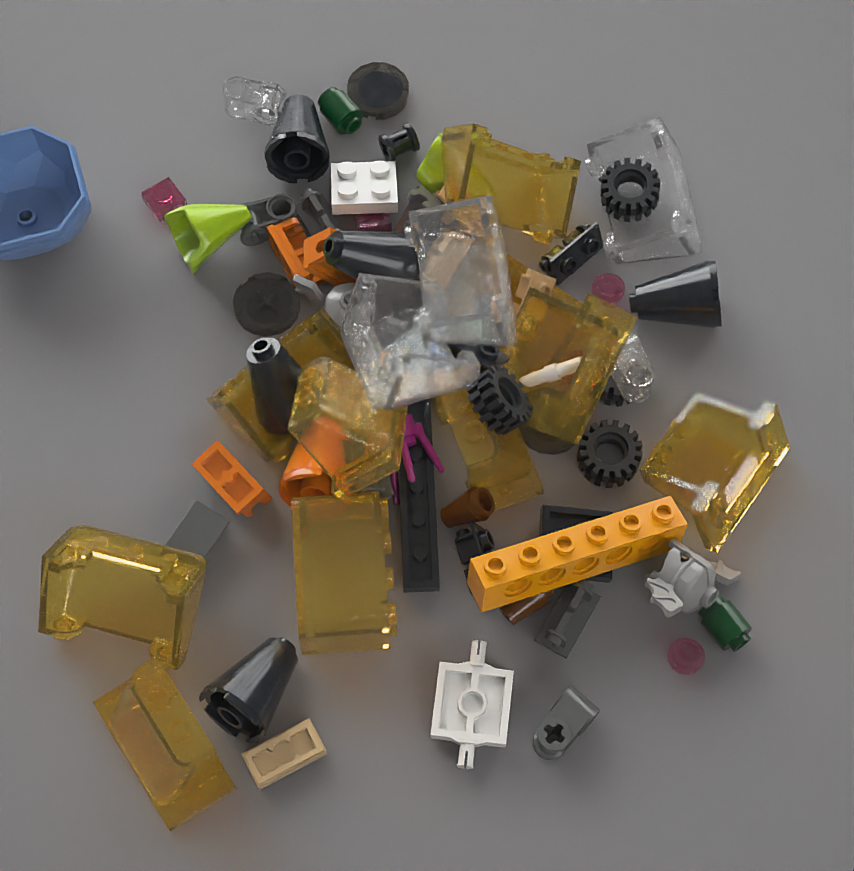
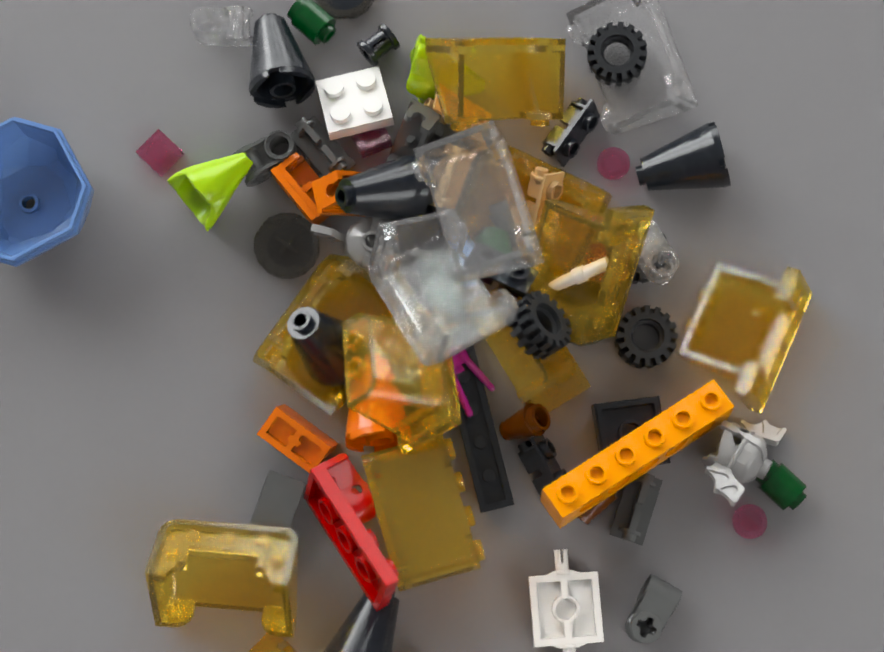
camera: 10 degrees left, 15 degrees up
(262, 564) = (342, 515): none -> red plate

